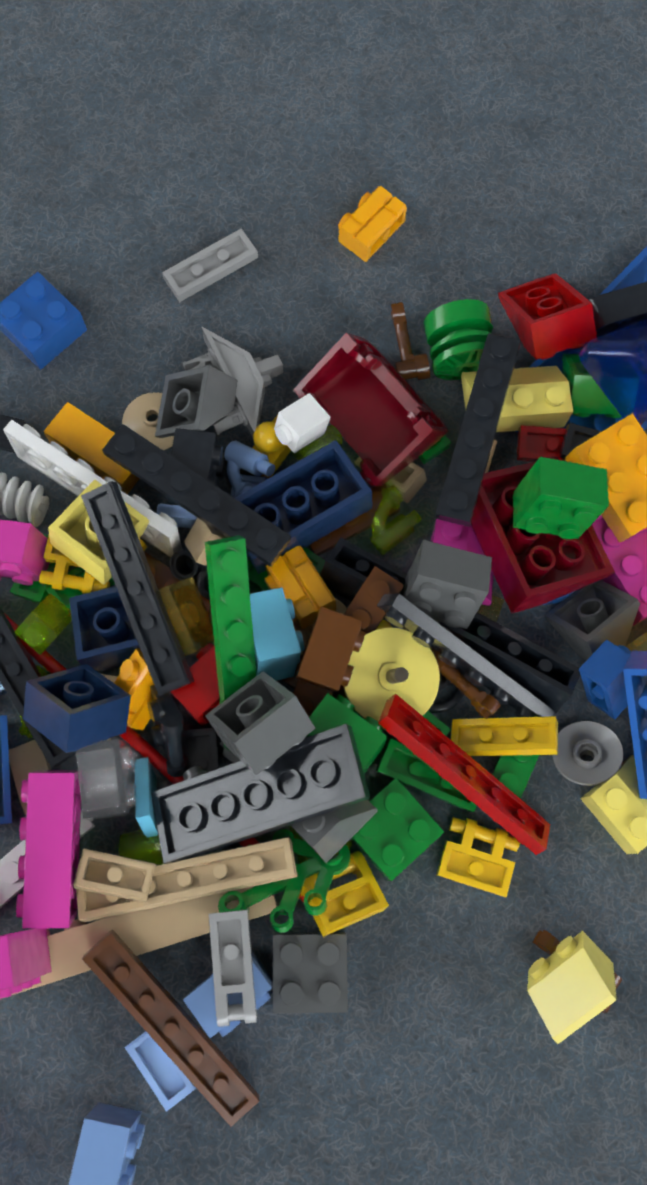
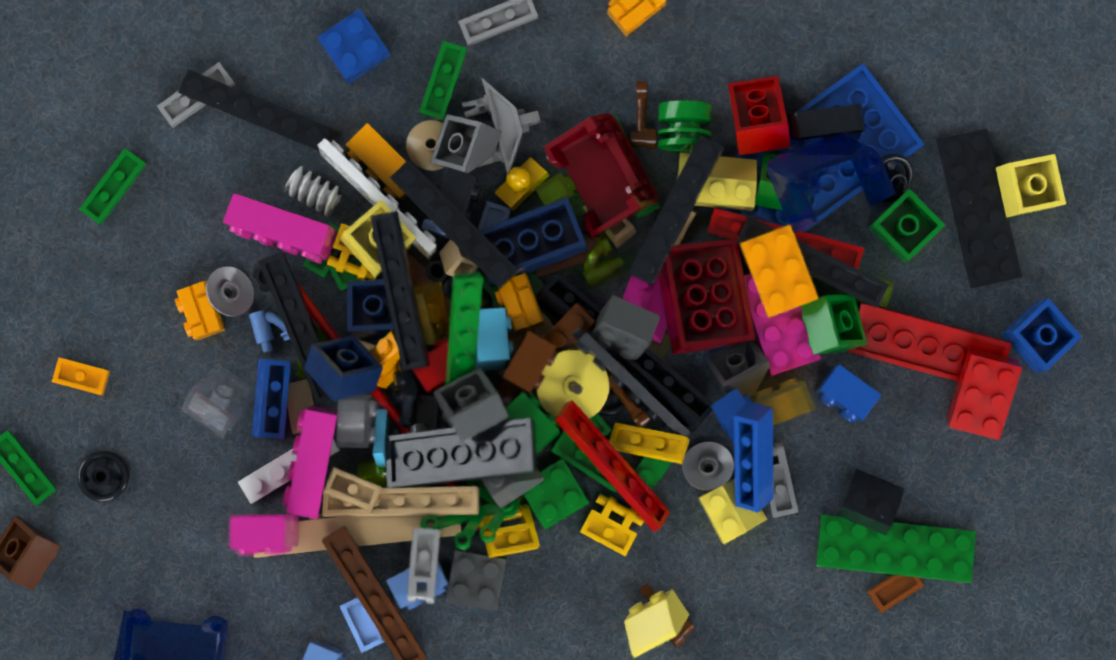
camera: 15 degrees right, 10 degrees up
(44, 624) = (326, 297): clear neon green brick -> none
(155, 343) = (443, 81): none -> green plate
(244, 457) = (495, 191): medium blue plant -> none
(301, 423) = (543, 178): white brick -> none
(560, 498) = (720, 280): green brick -> none

